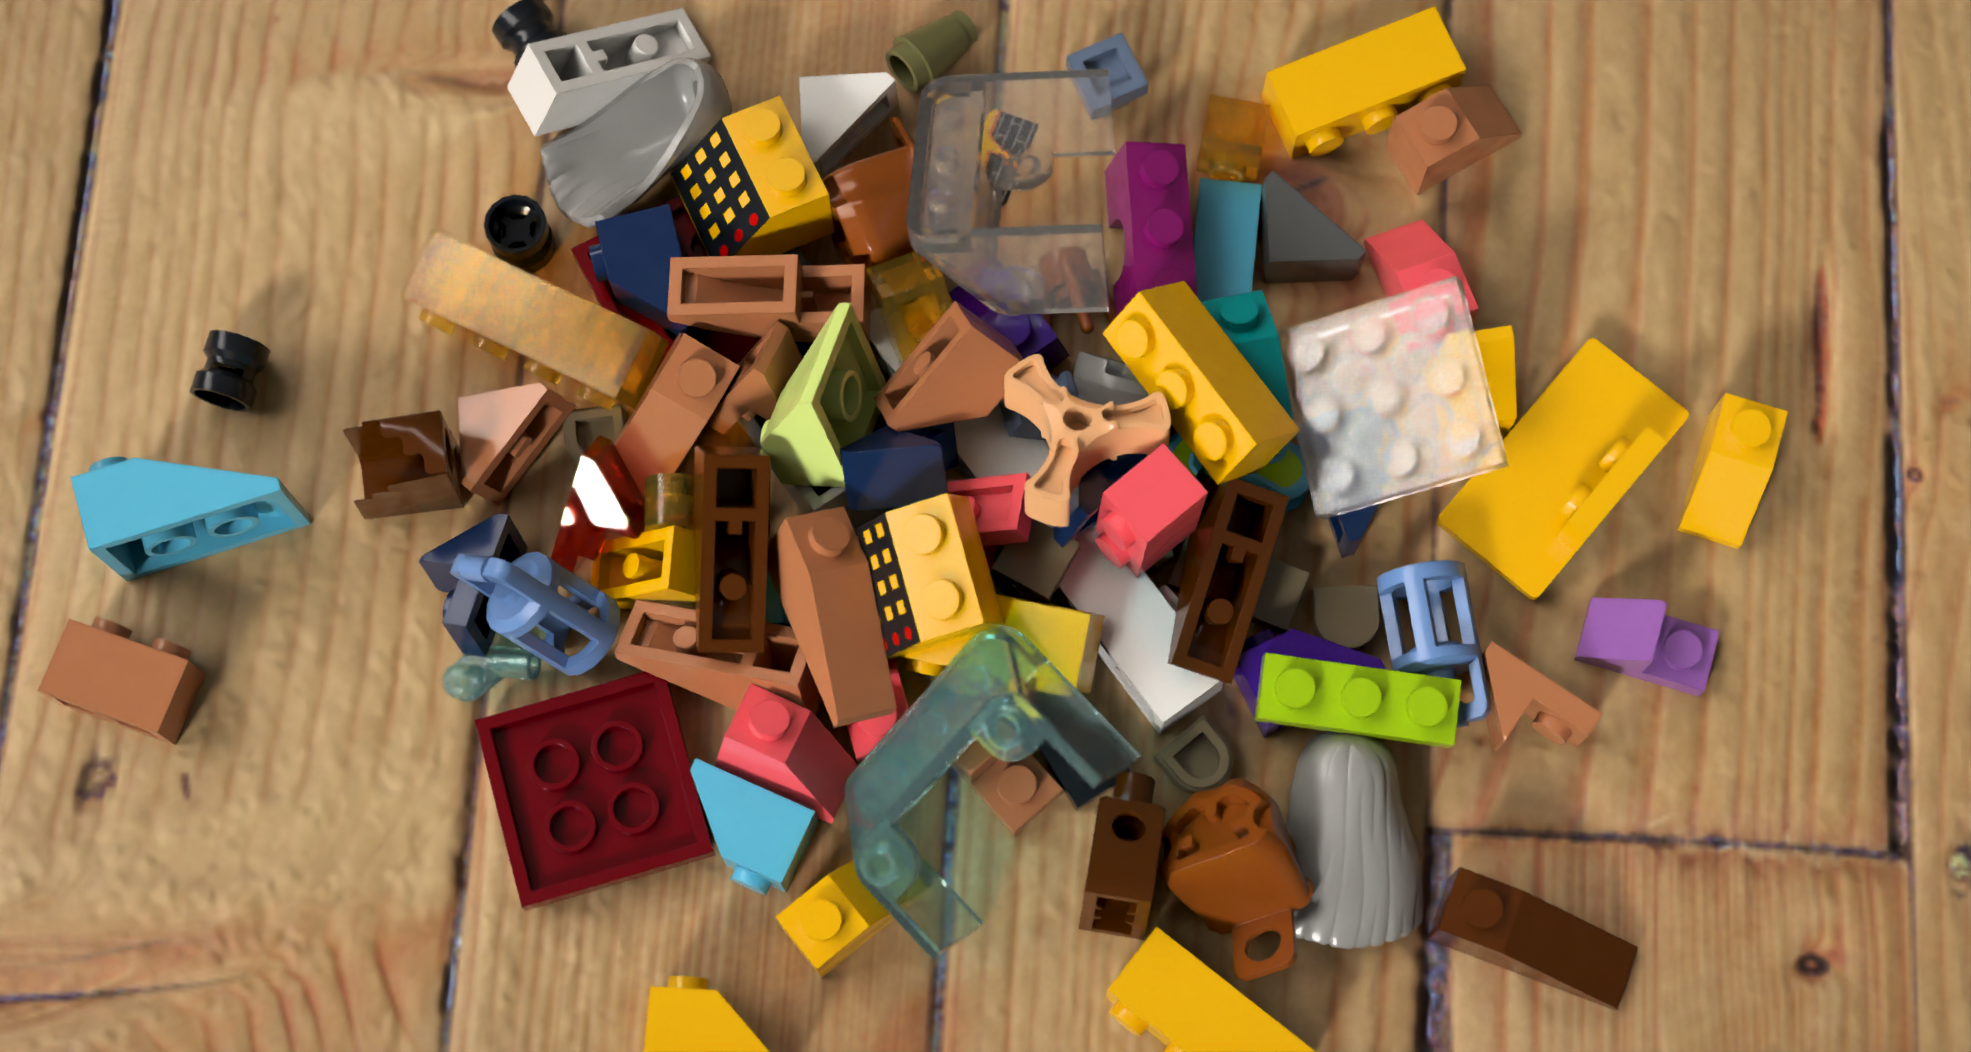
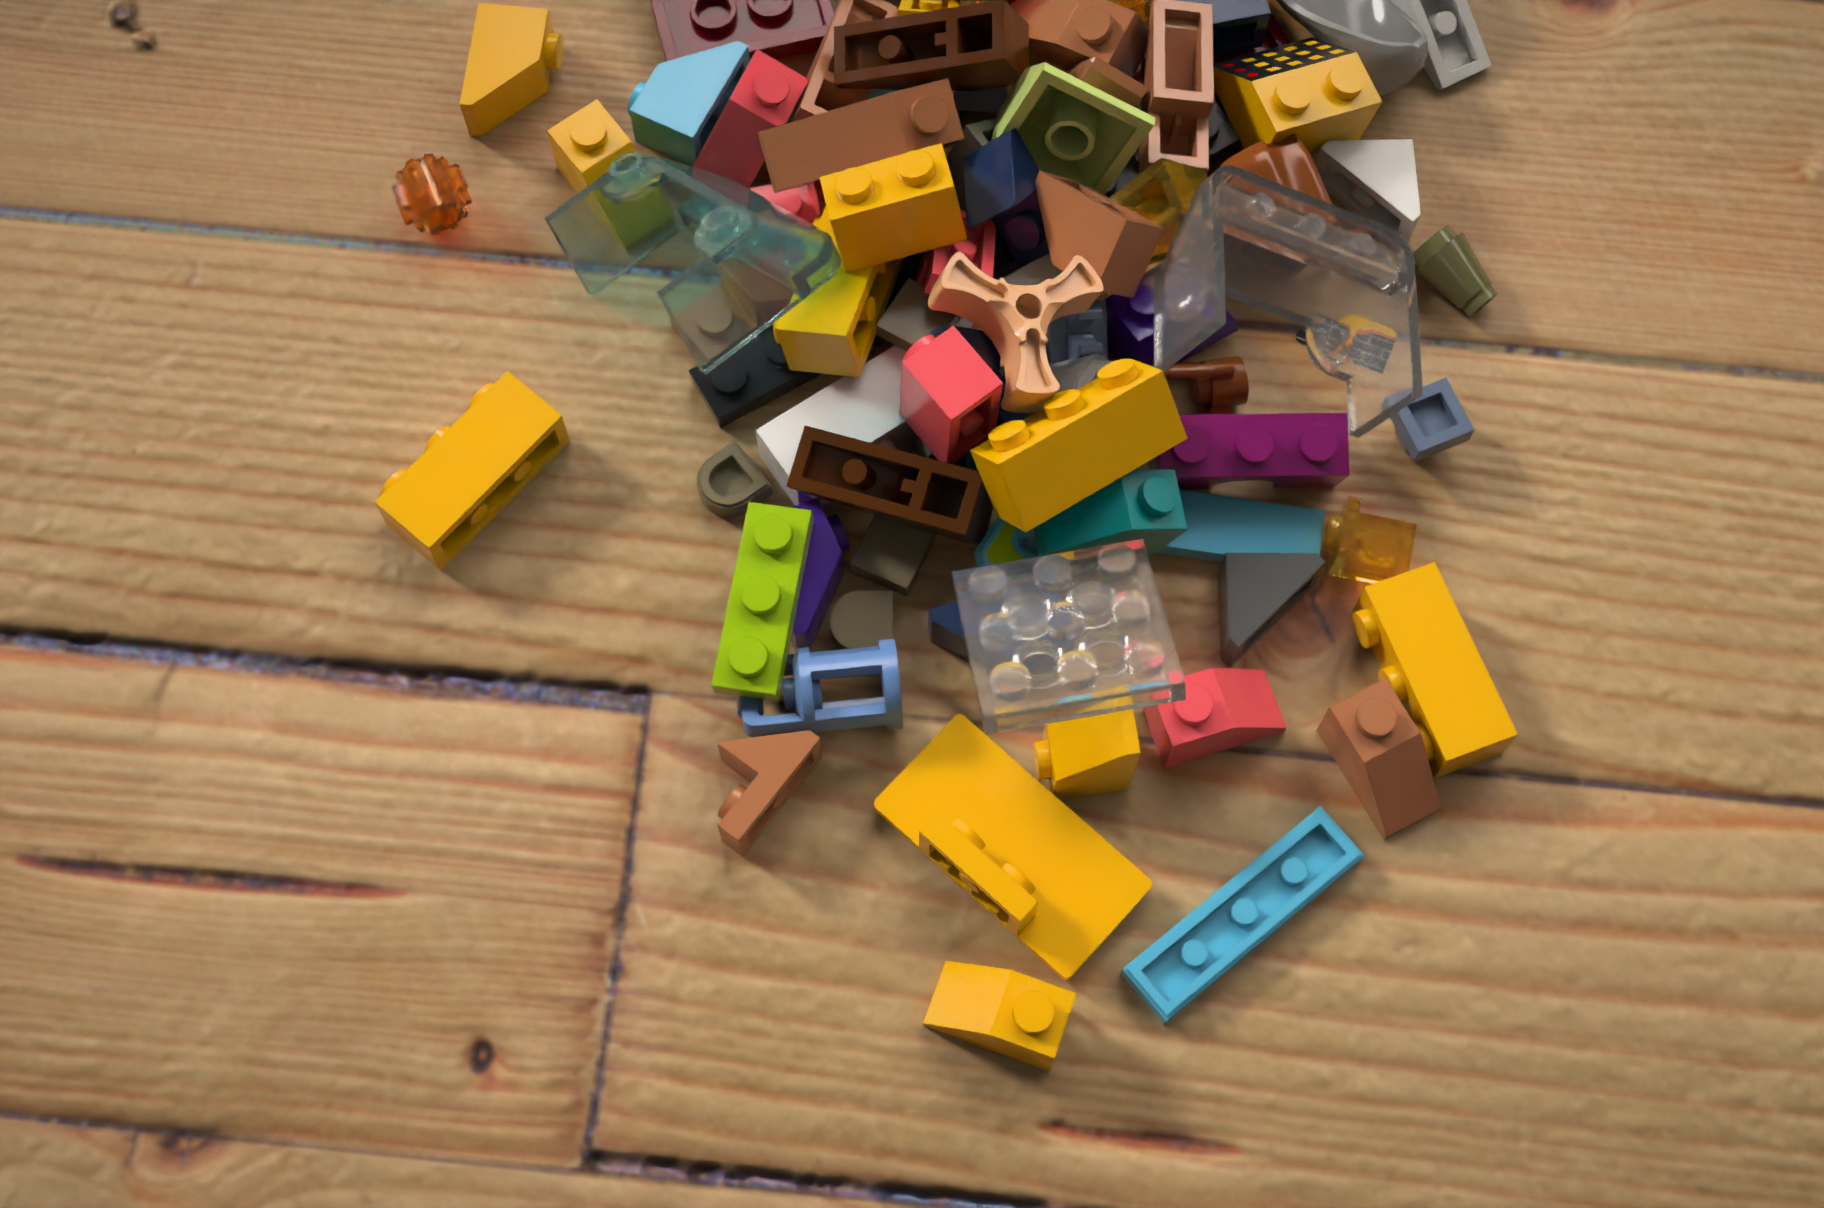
camera: 90 degrees right, 5 degrees down
(1123, 859) = (630, 394): reddish brown torso -> none
(1237, 870) = (620, 494): dark orange piece -> none
(1353, 844) = (627, 608): light grey hair -> none
(1531, 938) = (526, 767): reddish brown slope -> none
(1608, 261) = (1241, 915): none -> medium azure tile
(1647, 644) = (819, 916): medium lavender slope -> none

